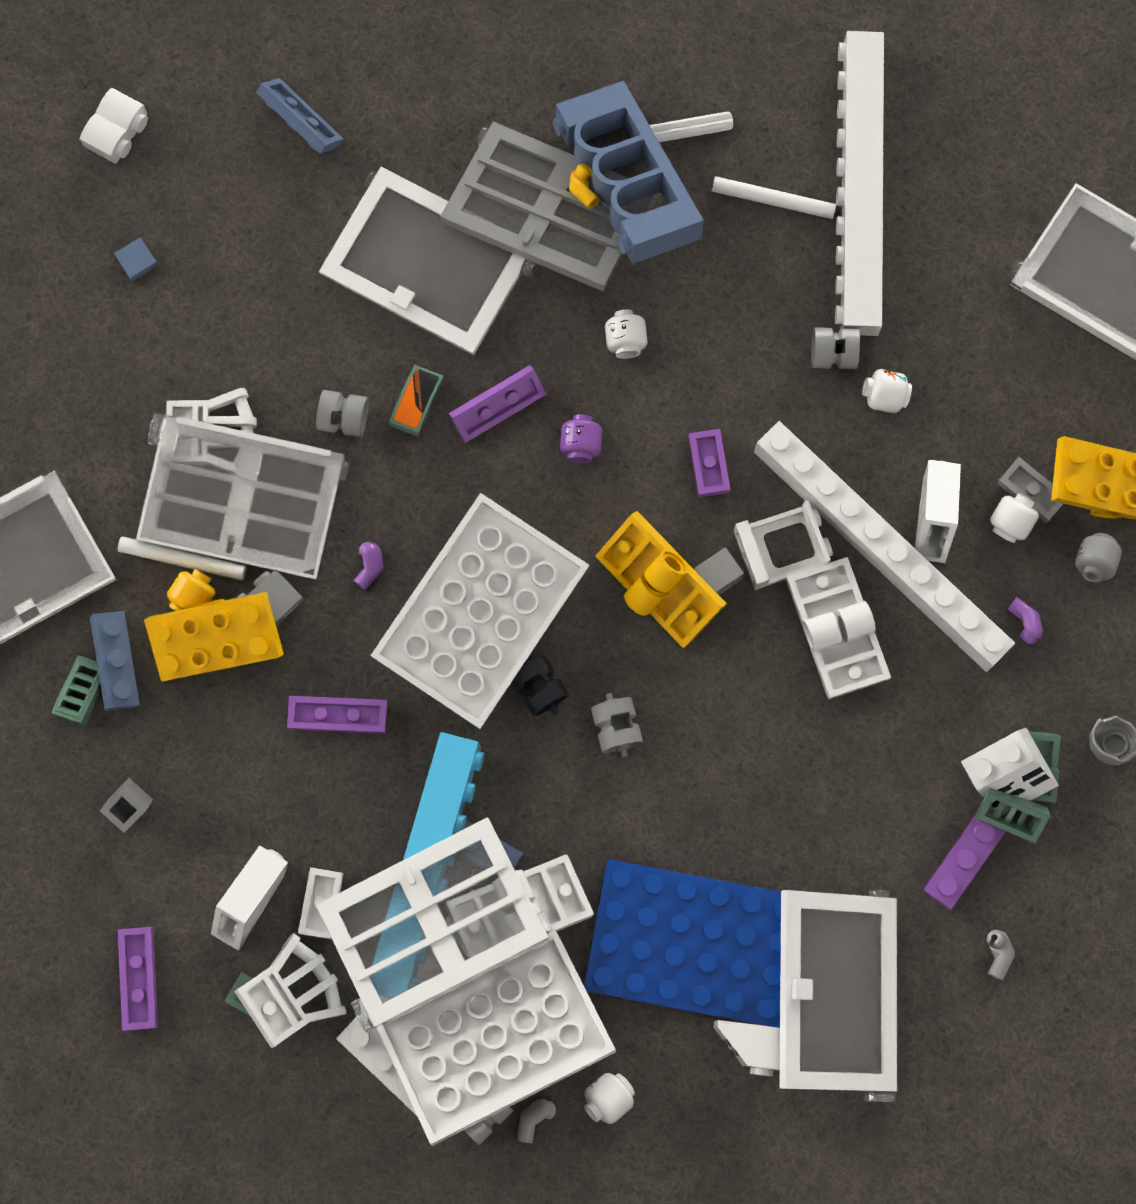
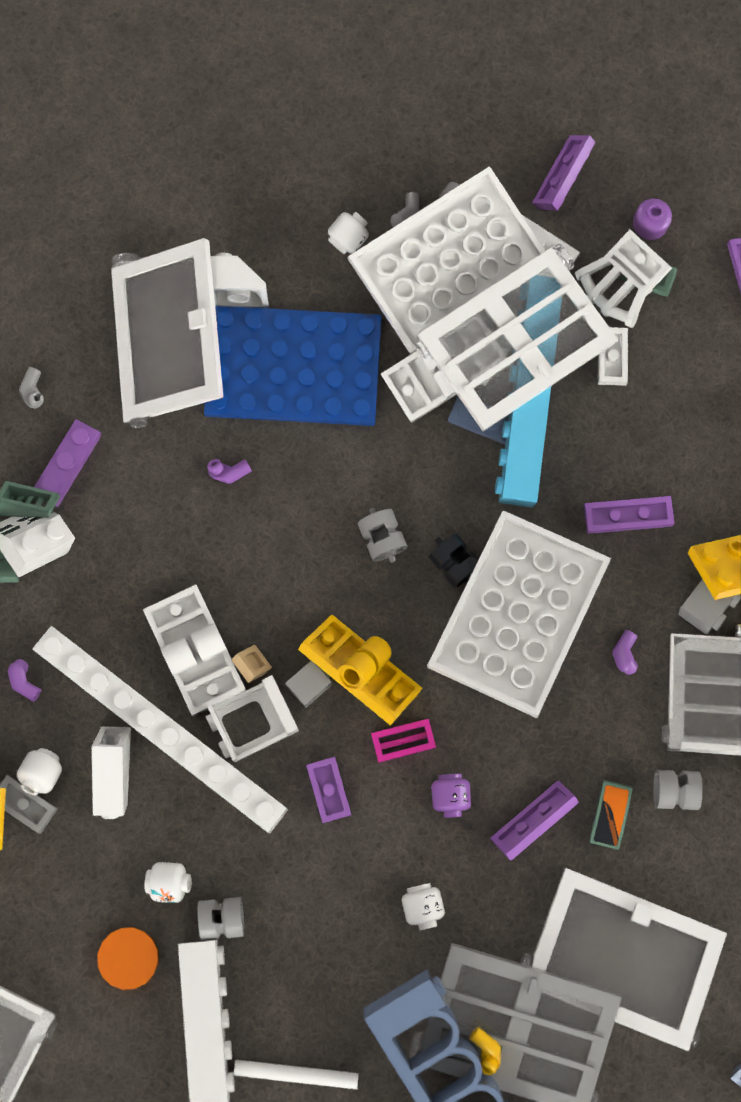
camera: 170 degrees right, 0 degrees up
(242, 1065) = (652, 219): none -> medium lavender head
(248, 897) = (673, 353): white slope -> none
(336, 1144) = (563, 172): none -> medium lavender plate
(622, 492) = (427, 734): none -> dark pink tile
(777, 604) = (251, 663): none -> tan plate
(782, 823) = (227, 473): none -> medium lavender arm
(933, 326) = (128, 958): none -> orange tile

